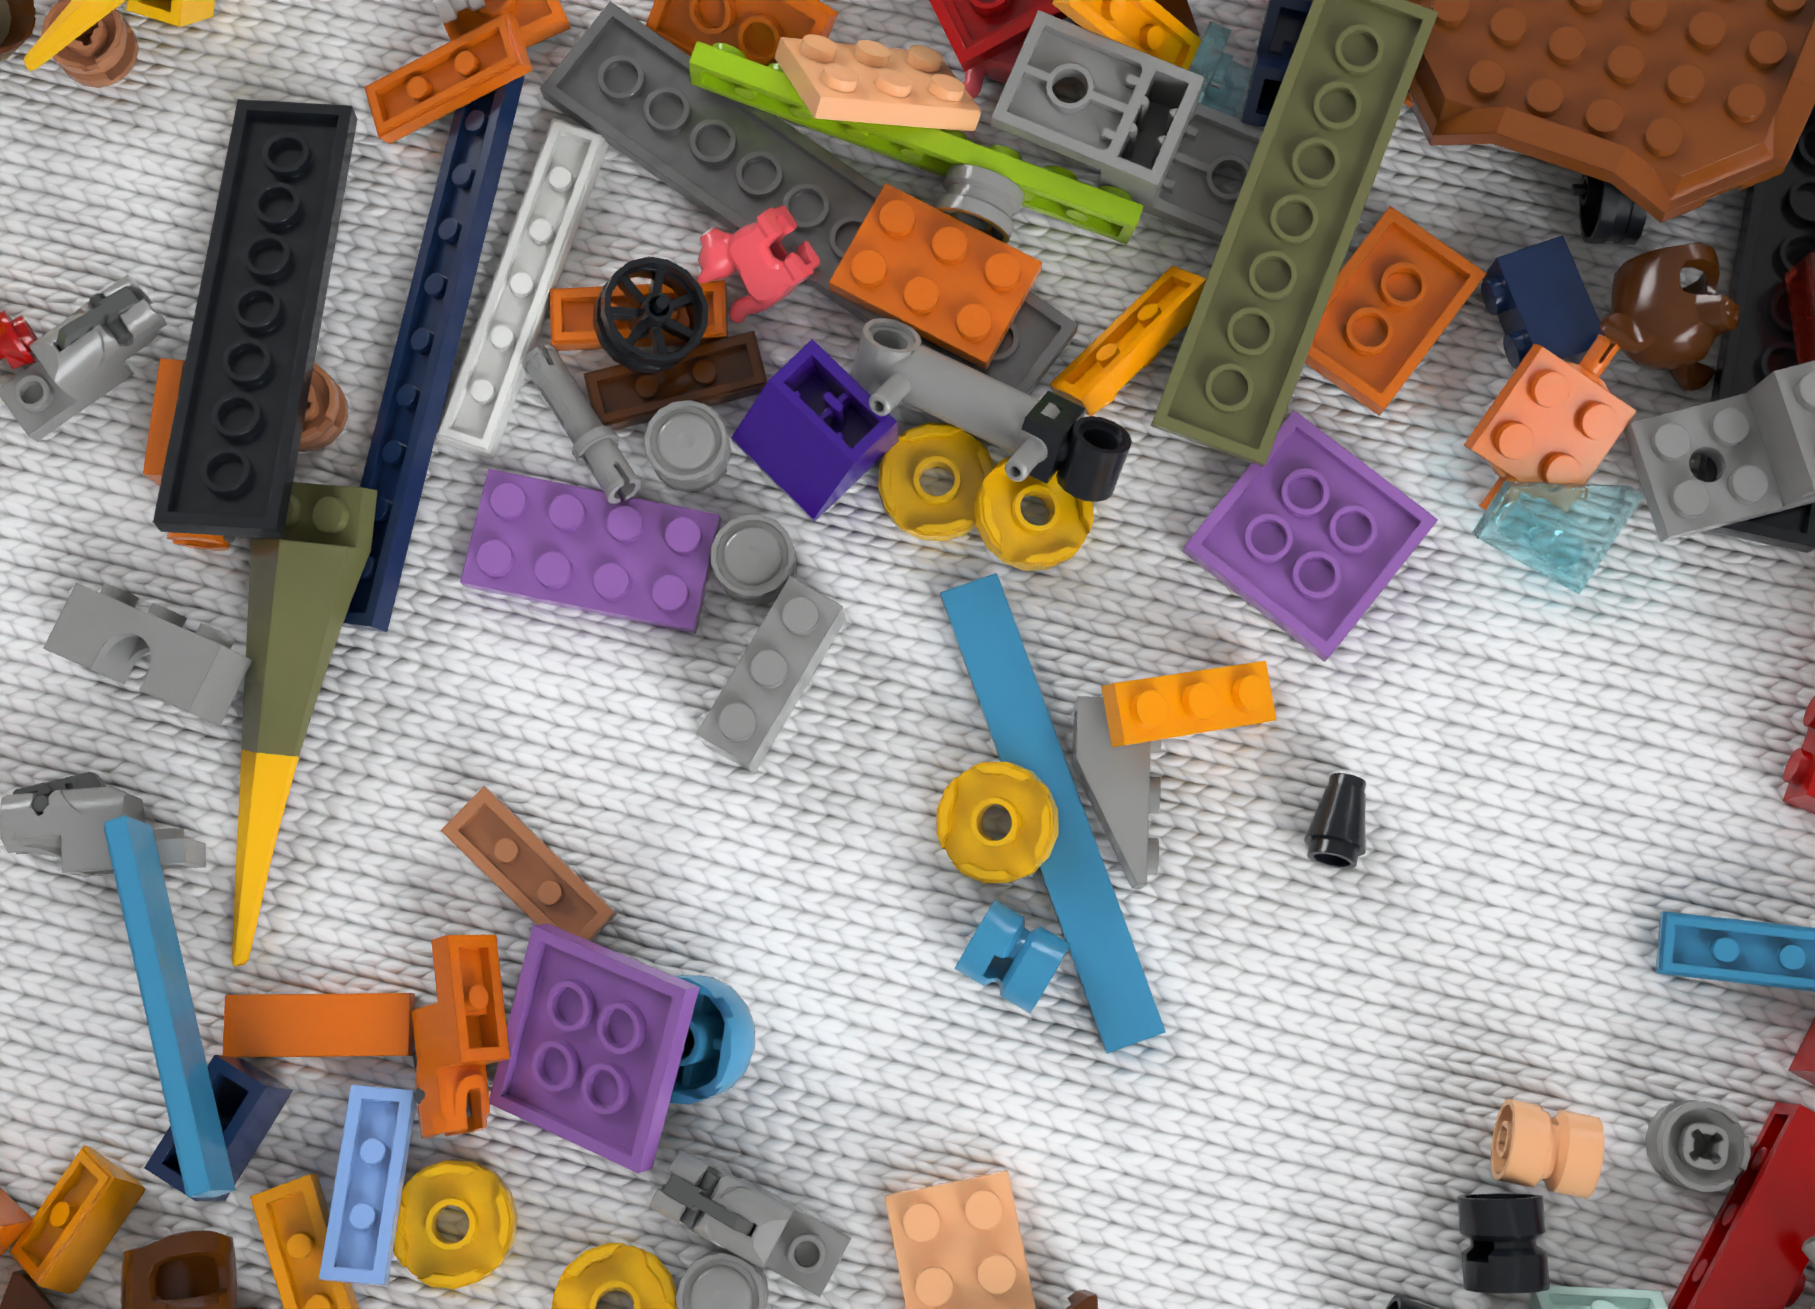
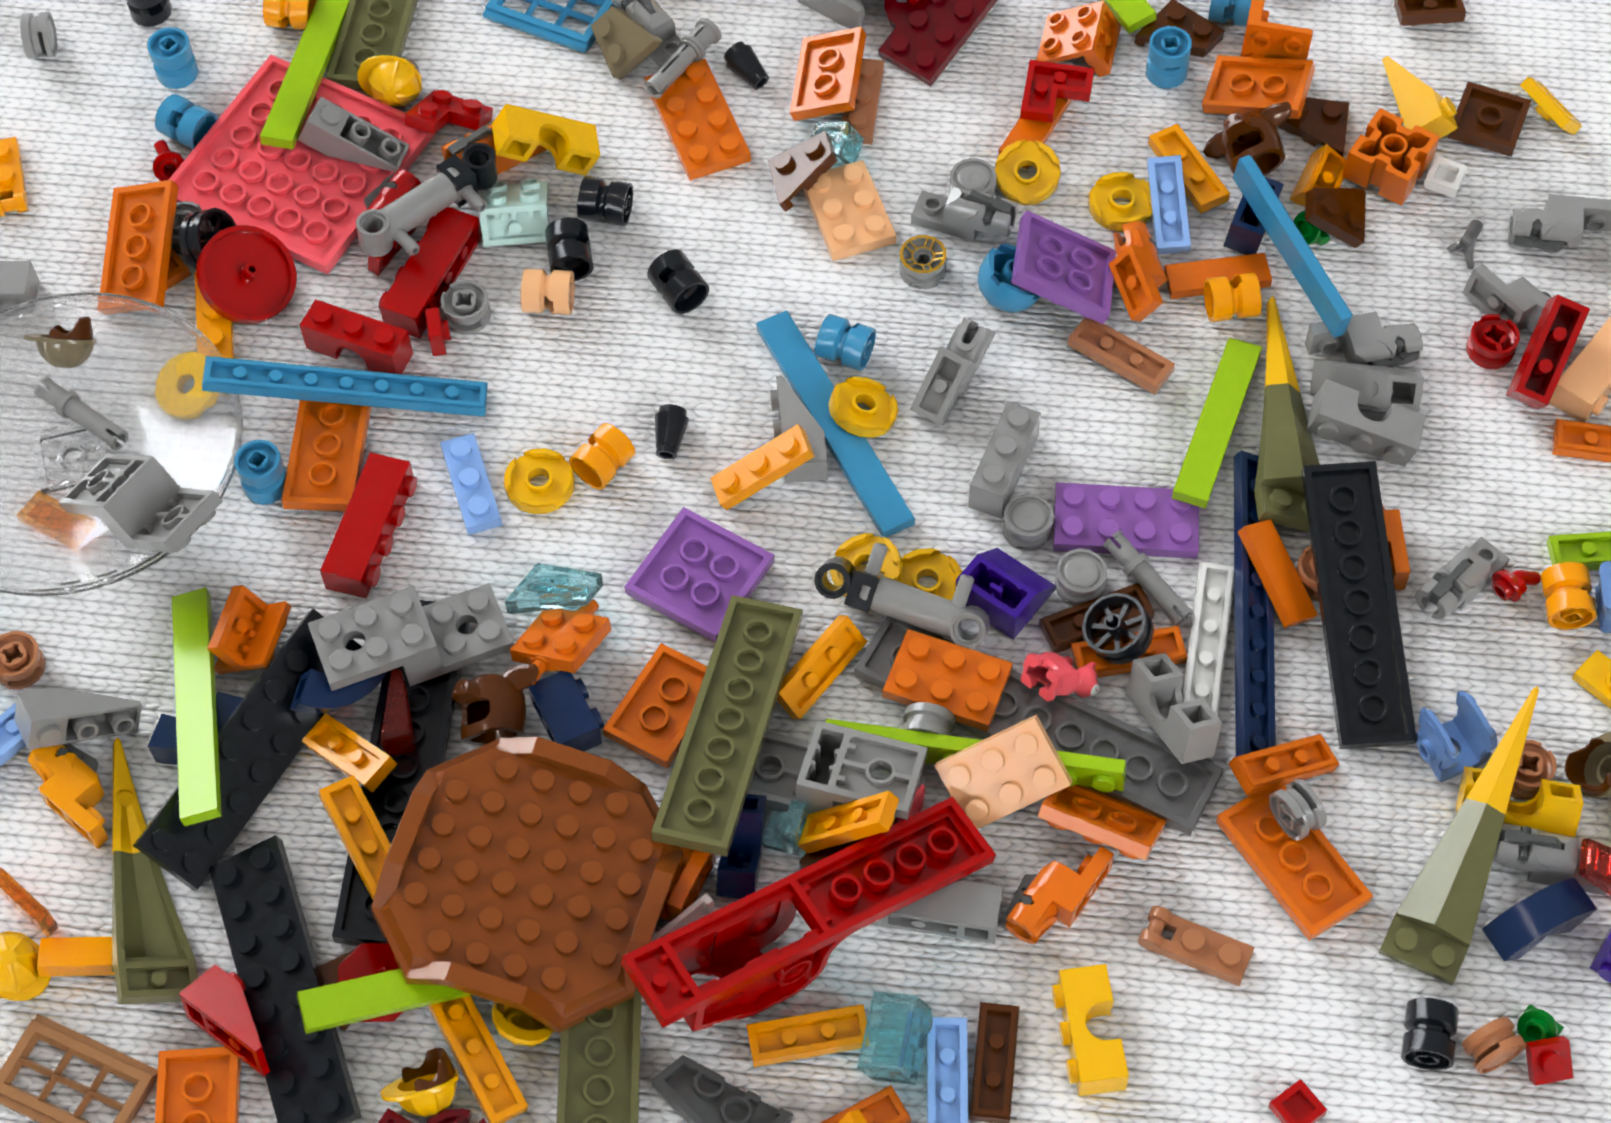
camera: 170 degrees right, 20 degrees down
(63, 1119) = (1338, 212): none -> reddish brown wing
(112, 732) = (1377, 384): none -> light grey slope
(129, 1102) = (1310, 232): none -> green plate
(158, 90) = (1467, 731): none -> medium blue piece
(300, 955) = (1237, 297): none -> light orange wheel
(372, 400) = (1277, 573): none -> orange tile
(395, 706) = (1216, 423): none -> lime tile
(585, 130) = (1186, 728): none -> light grey arch
(828, 862) = (952, 371): none -> light grey plate
(829, 1148) = (926, 250): none -> light grey wheel
(1303, 1137) = (678, 281): none -> black wheel
(1468, 769) = (605, 453): none -> light orange wheel
(1543, 787) = (539, 498): none -> yellow tile
(1687, 772) = (471, 484): none -> light blue plate
(1753, 1092) = (437, 331): none -> red plate

